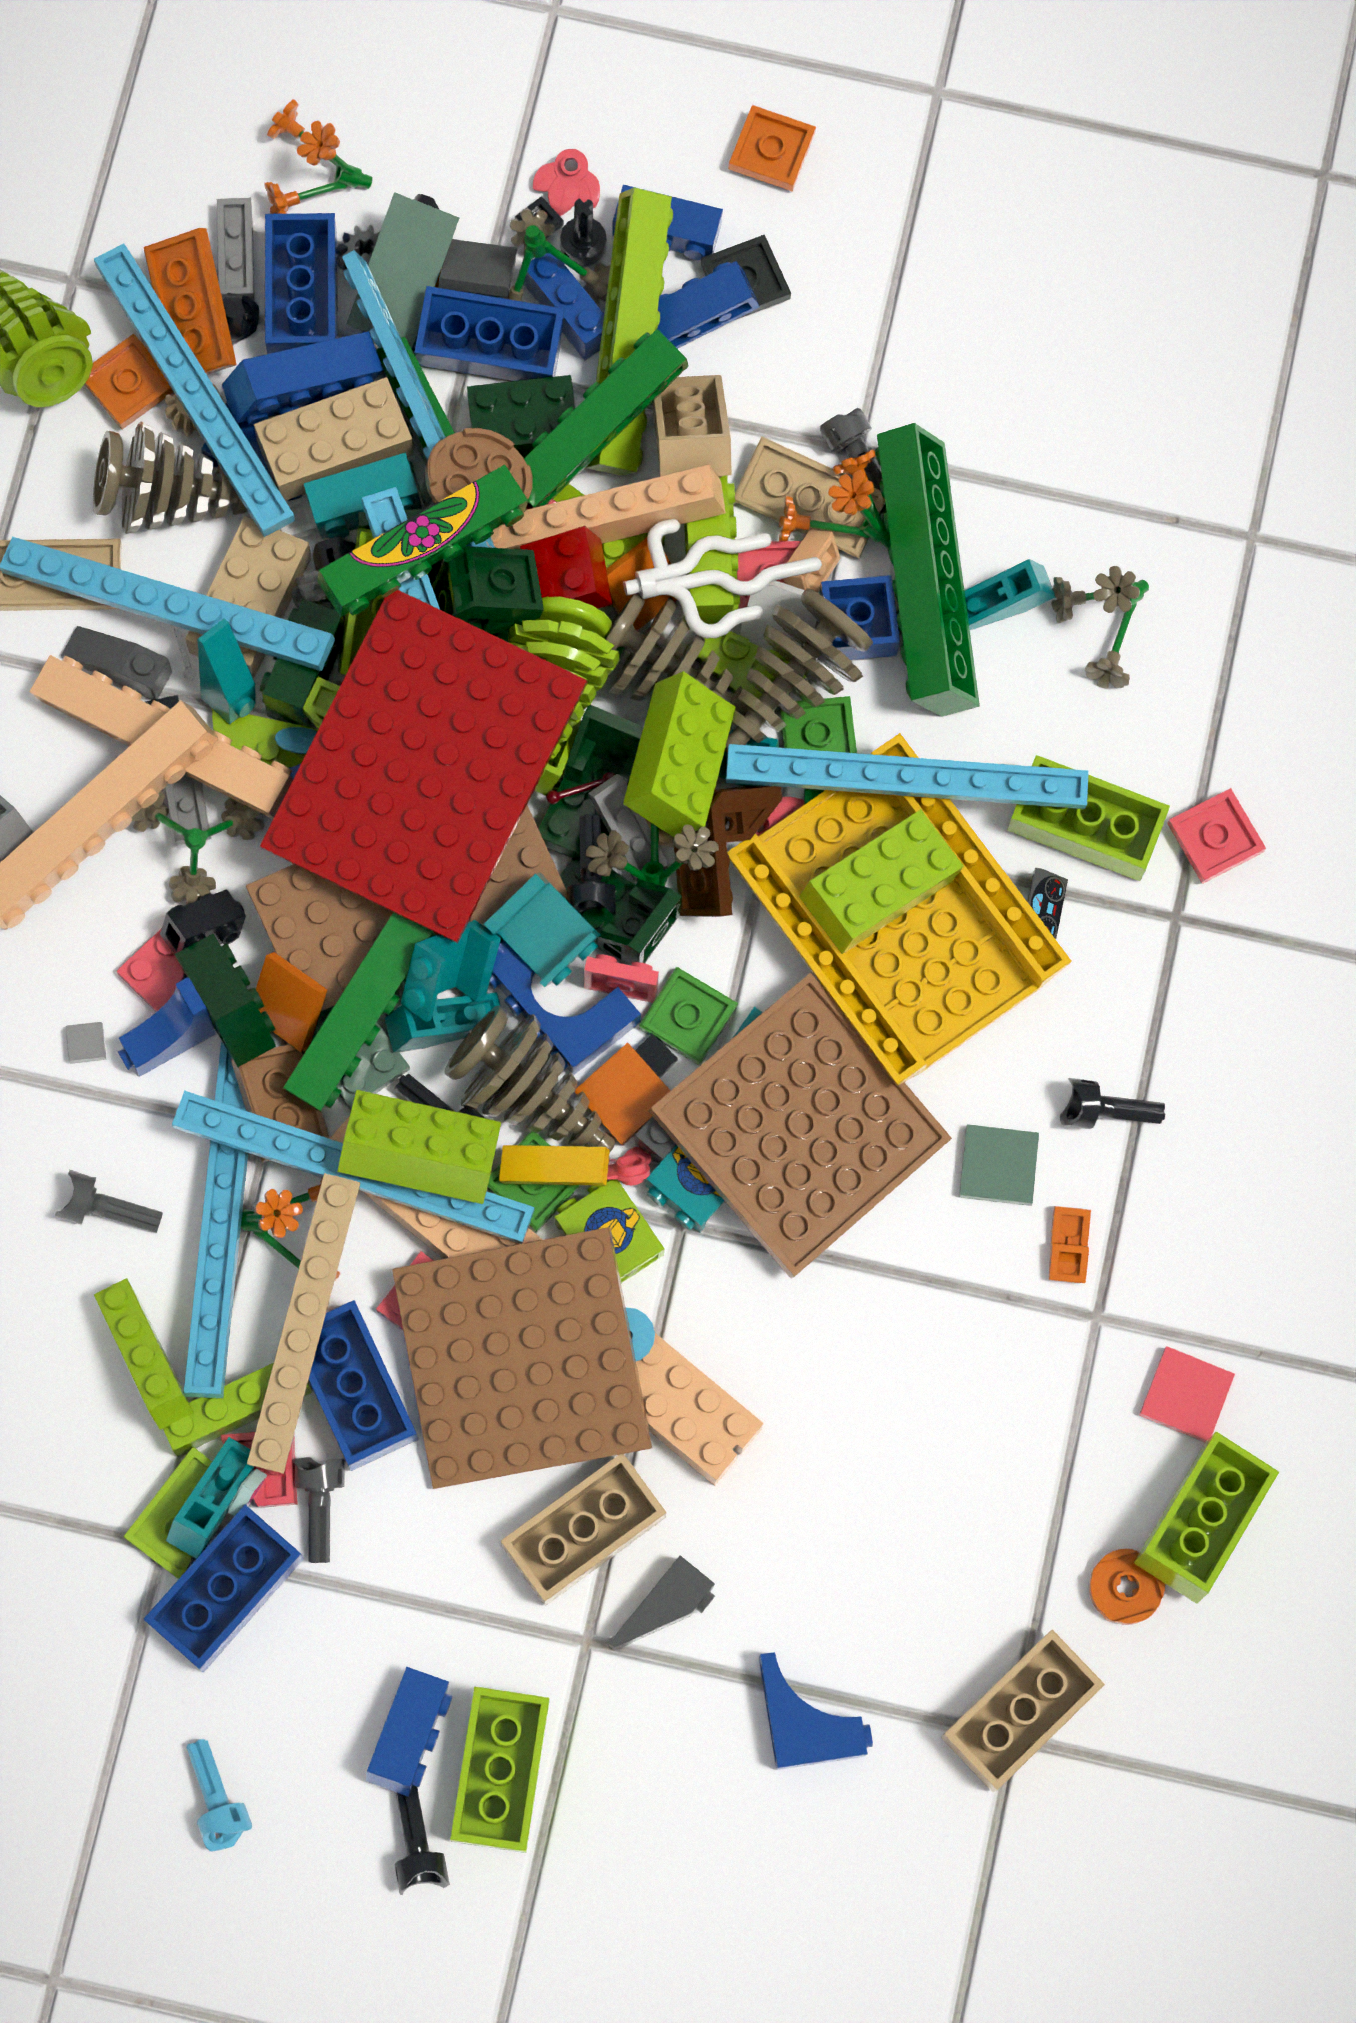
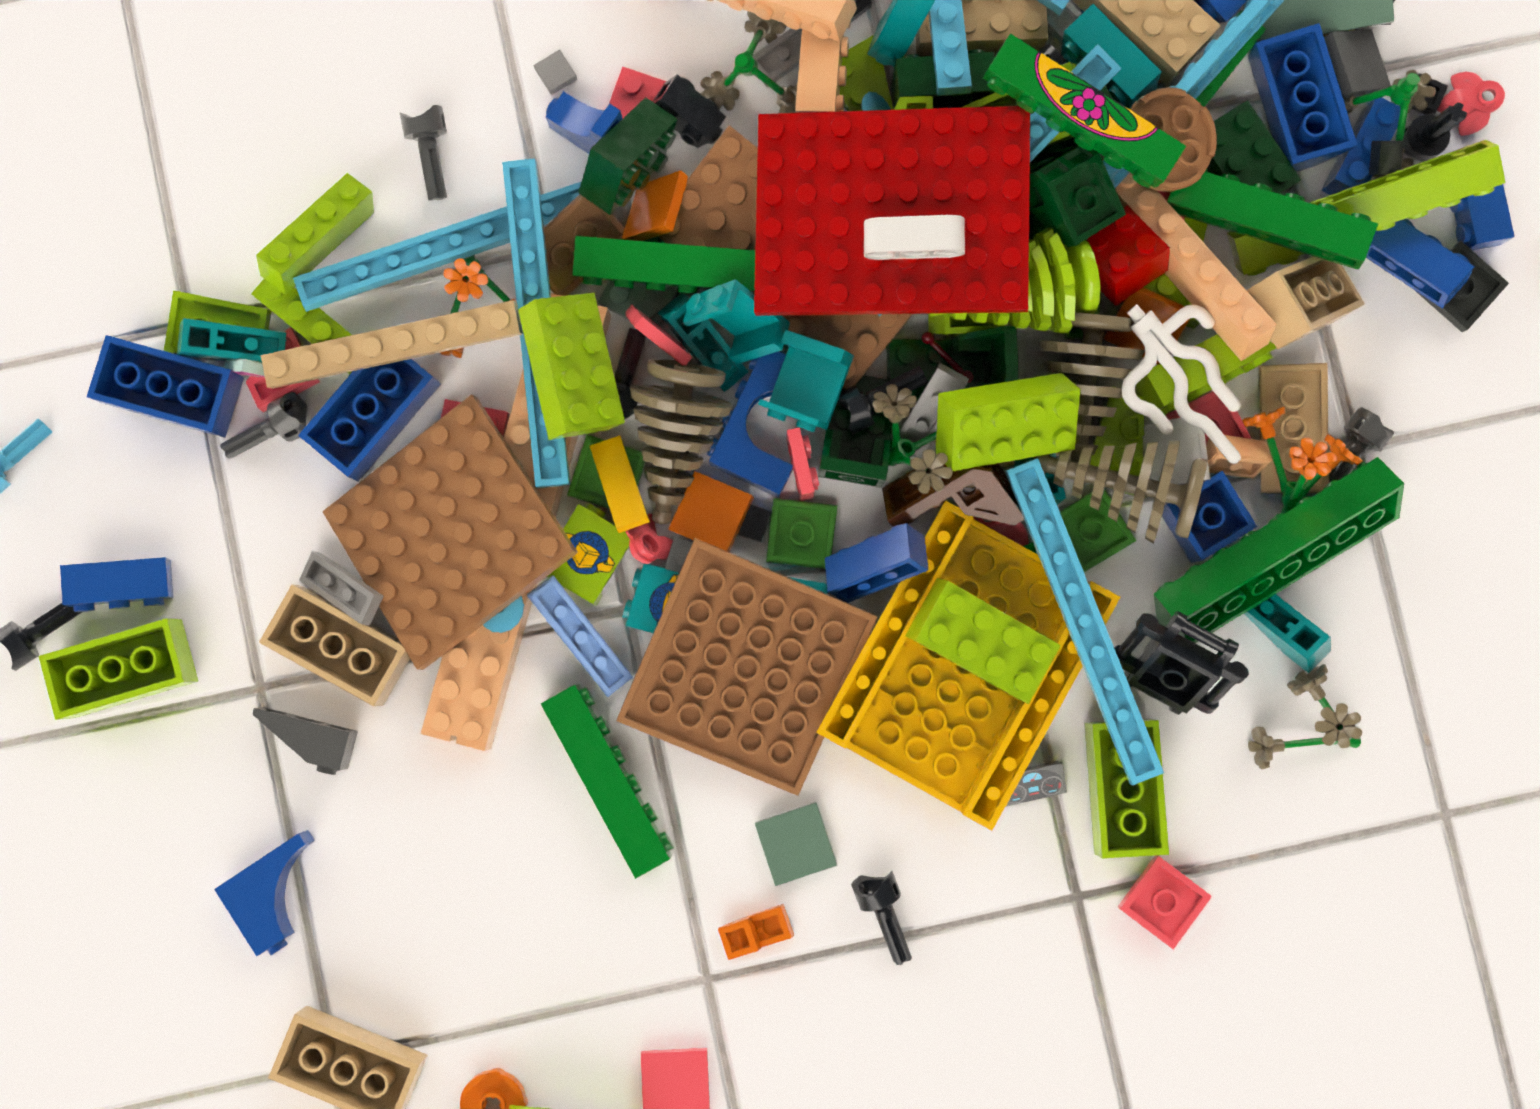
camera: 70 degrees right, 10 degrees up
(422, 1056) = (658, 335): none -> coral tile
(466, 751) = (914, 237): none -> white beam
(525, 1498) = (341, 588): none -> light grey plate
(588, 288) = (1385, 157): none -> black tile
(691, 1278) = (579, 635): none -> light blue tile
(756, 949) = (876, 563): none -> blue brick
(848, 1320) = (607, 779): none -> green brick
(995, 713) = (1177, 668): none -> black brick

